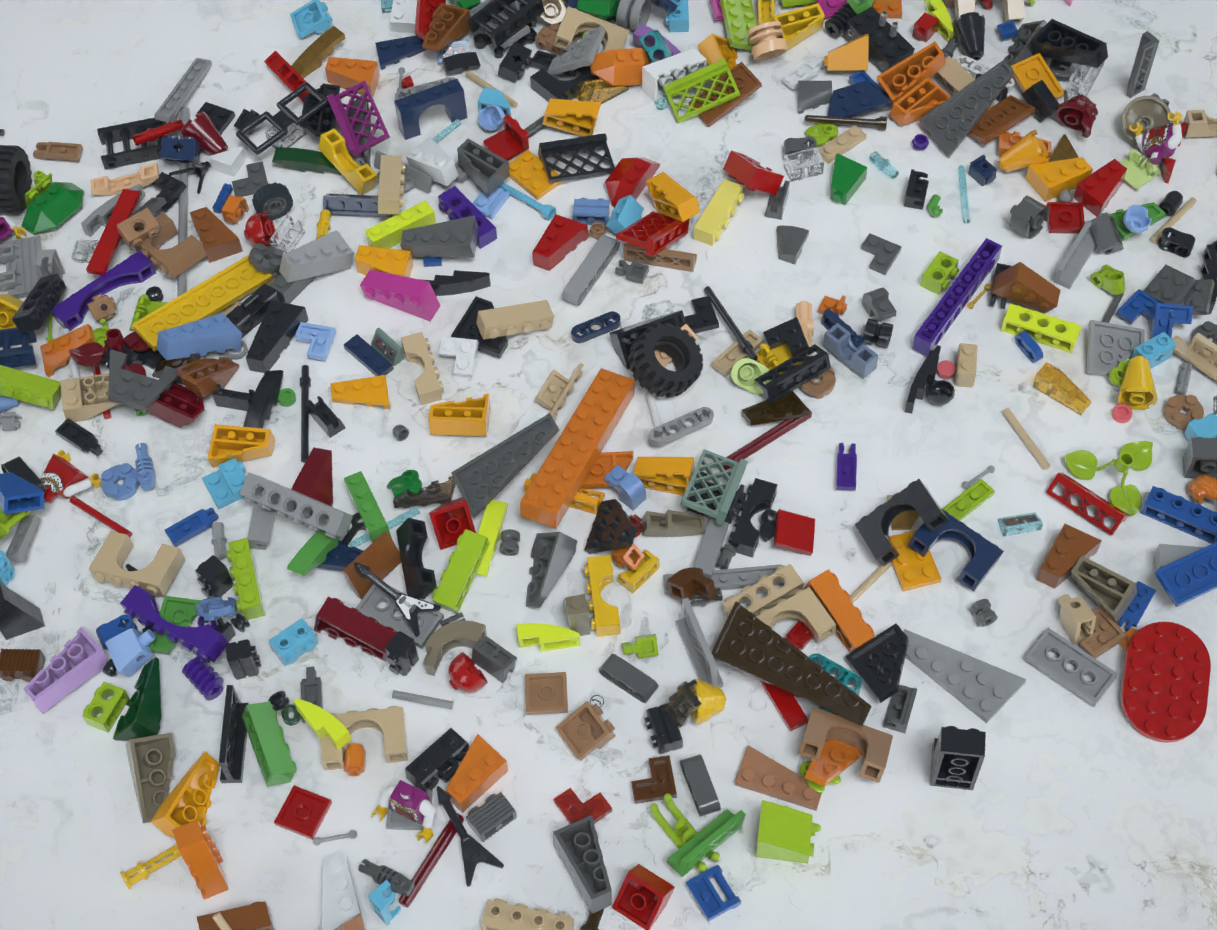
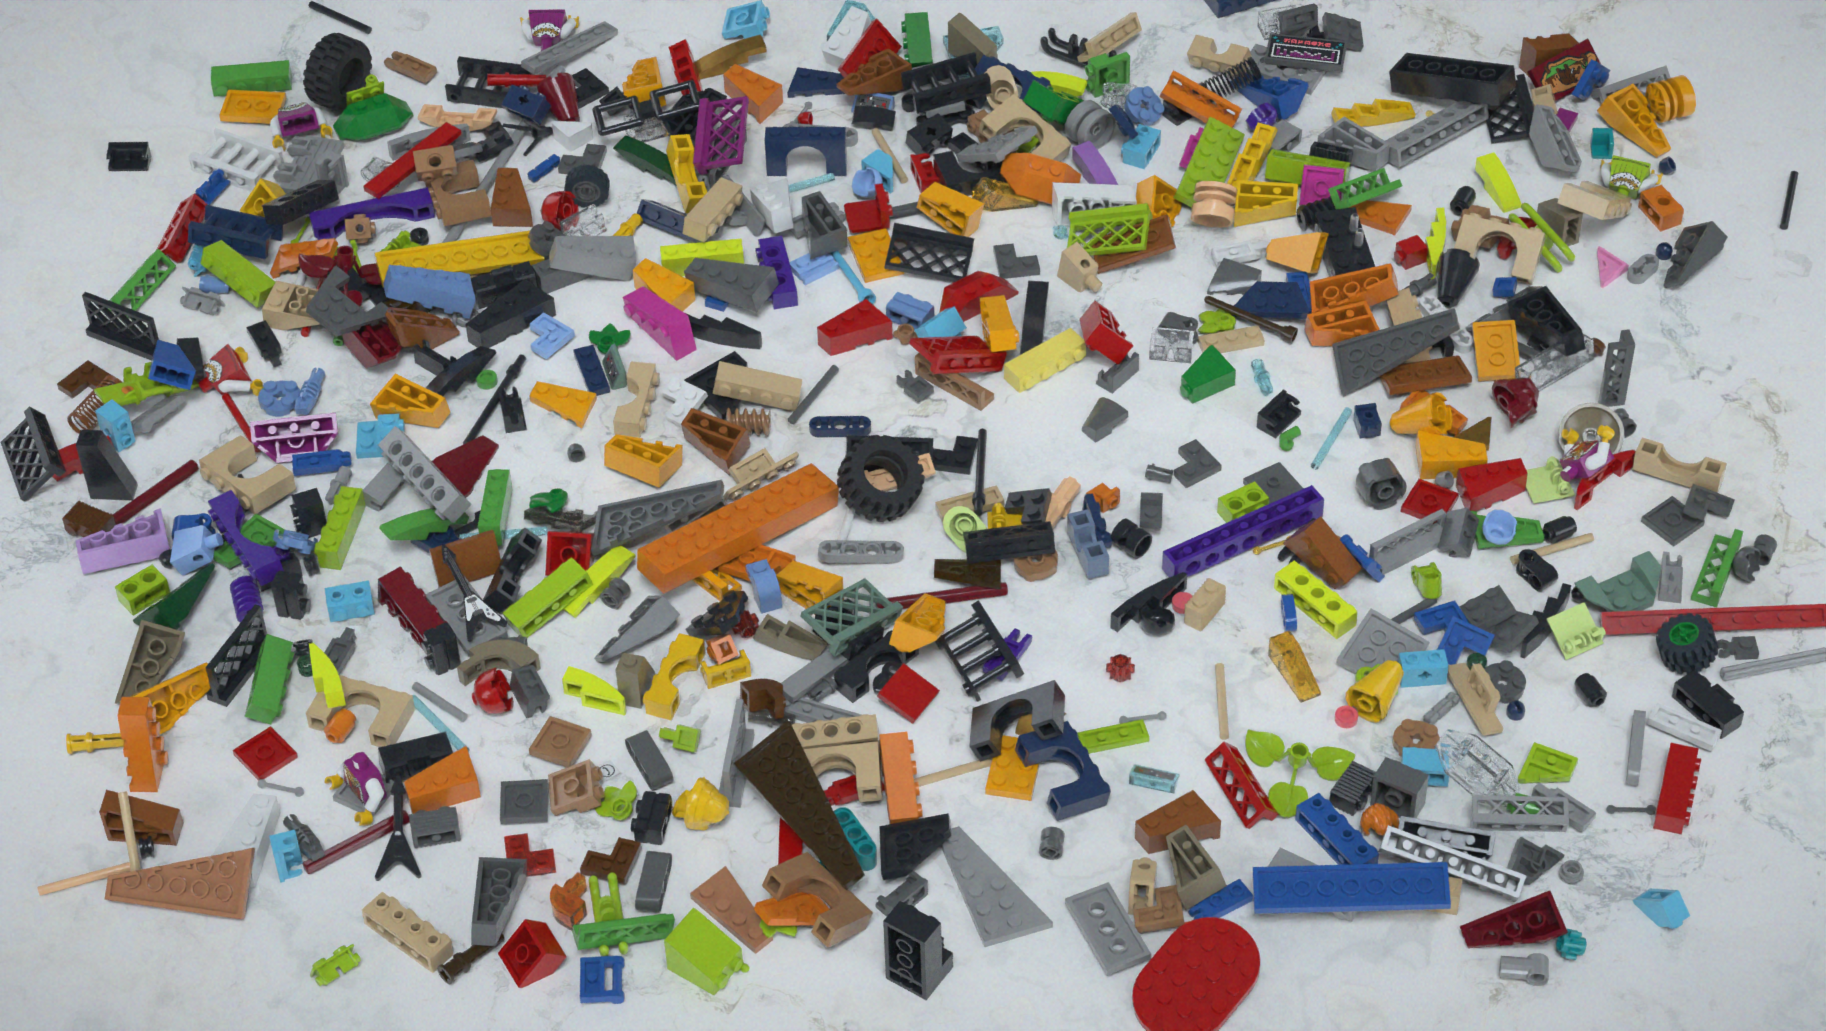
camera: 25 degrees right, 10 degrees down
(62, 611) = (155, 492): none -> dark red axle
(154, 79) = (548, 26): none -> torso
(158, 513) = (294, 435): none -> magenta wedge
(234, 209) = (547, 182): orange brick -> none
(262, 95) = (643, 80): none -> light orange wedge
(365, 322) = (608, 336): none -> green plate
(436, 721) = (437, 723): none -> clear light blue bar
(508, 376) = (716, 438): none -> dark orange wedge
(523, 351) = (751, 421): none -> medium nougat piece
(528, 95) = (923, 171): none -> red hinge
(550, 760) = (524, 801): none -> dark grey plate
(557, 309) = (813, 394): none -> dark grey bar
(590, 270) = (870, 369): light grey beam -> none
(624, 724) = (616, 800): none -> lime plate
(641, 145) = (1011, 266): none -> dark grey plate
(641, 839) = (566, 902): none -> clear orange brick
(663, 46) = (1095, 170): teal piece -> none
(683, 703) = (677, 793): clear smoke bracket -> none
(688, 176) = (1034, 315): none -> black slope
(699, 129) = (1078, 269): none -> tan torso
(776, 473) = (919, 624): none -> light orange wedge
(828, 455) = (998, 649): none -> black fence
(860, 271) = (1158, 473): none -> dark grey pin
(920, 142) = (1319, 368): dark purple plate -> none
(938, 443) = (1120, 668): none -> clear red gear
(949, 244) = (1274, 482): none -> dark grey plate
(1042, 99) = (1484, 368): black hinge -> none
(1064, 285) = (1361, 557): none -> blue plate
(1169, 469) = (1352, 788): none -> black brick
(1186, 328) = (1476, 658): none -> clear green bush

